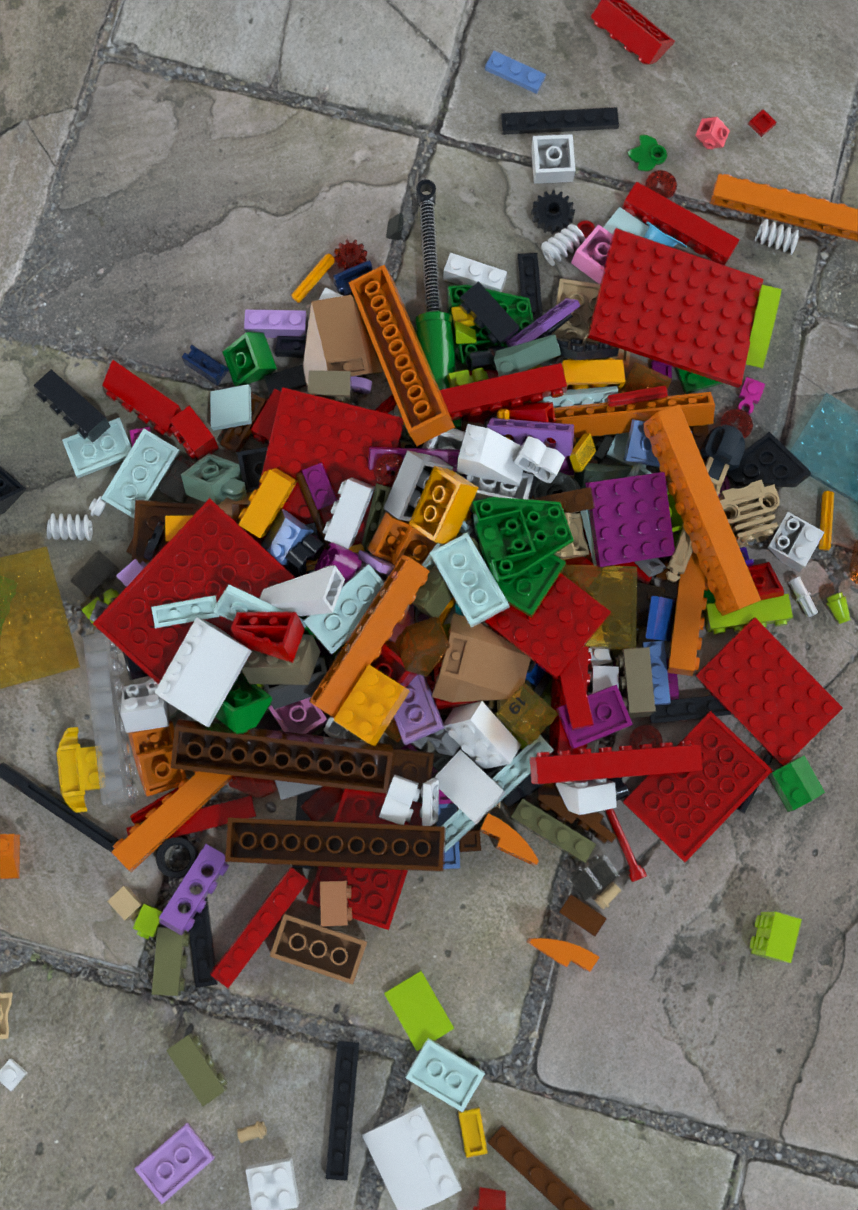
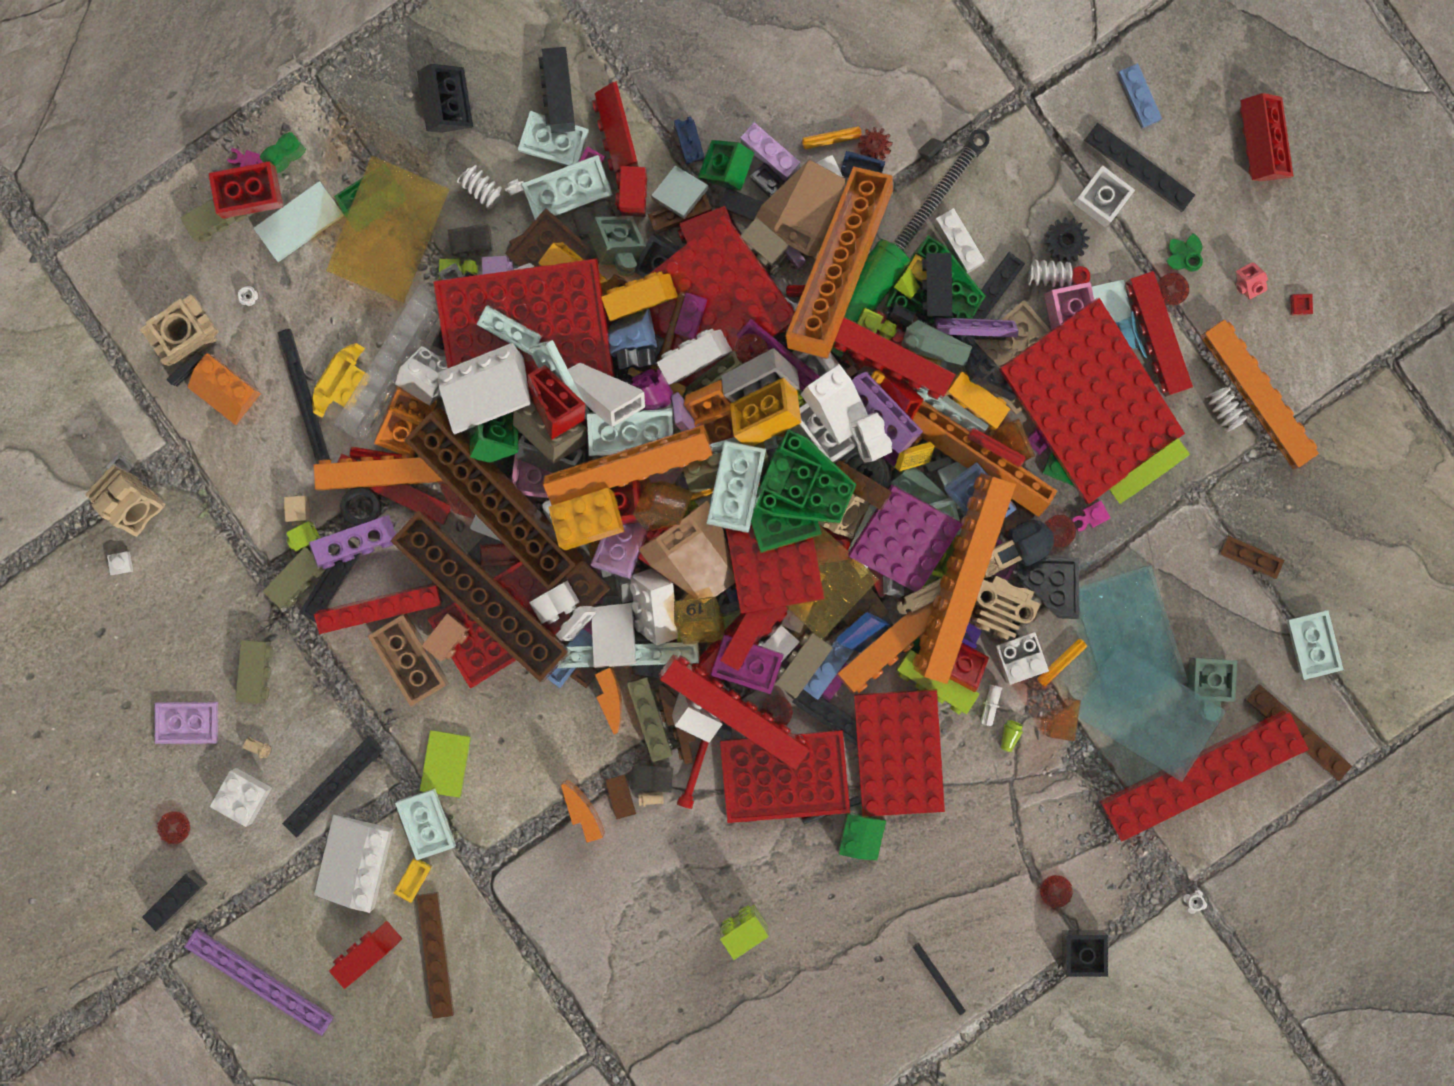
camera: 40 degrees right, 10 degrees up
(155, 541) = (532, 254): black tile -> none

